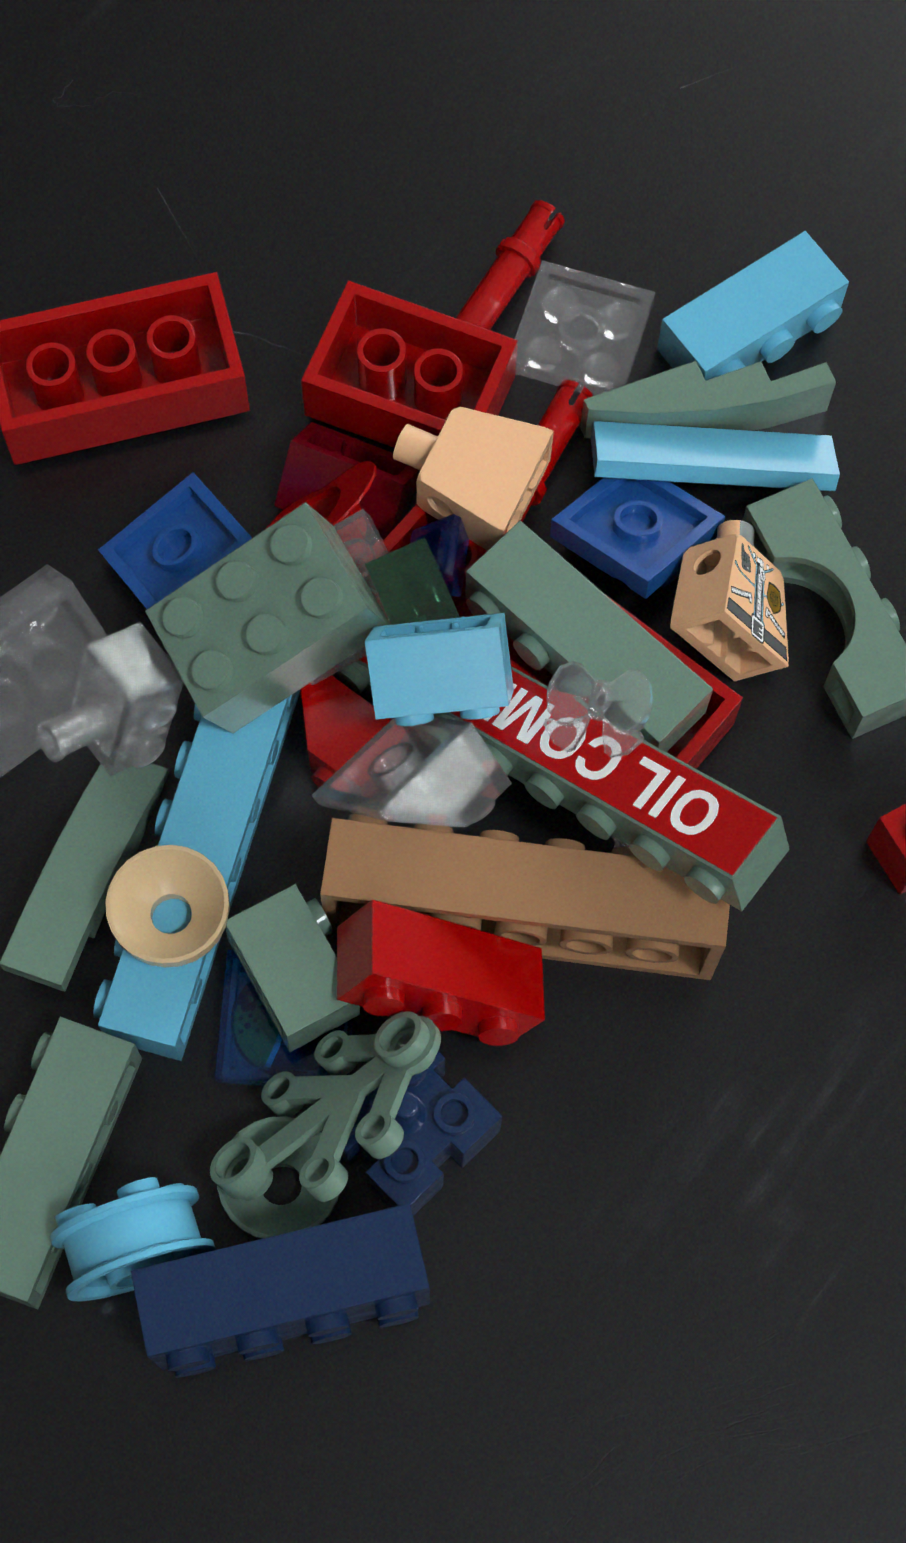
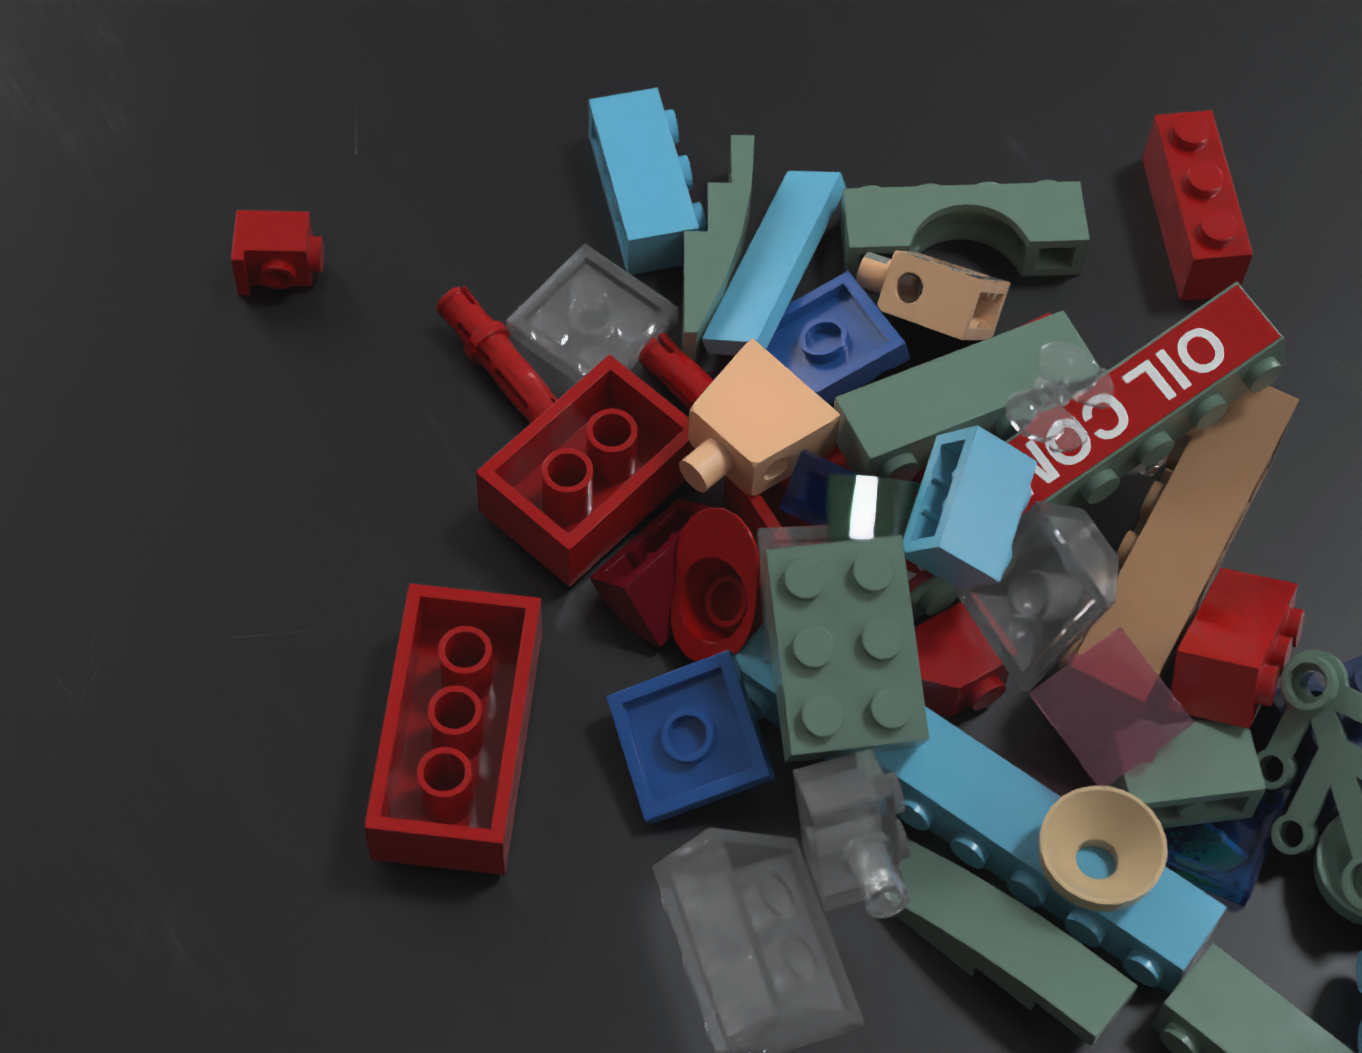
camera: 70 degrees left, 10 degrees down
(303, 867) = (1111, 708): none -> clear pink piece
(530, 57) = (275, 250): none -> red brick

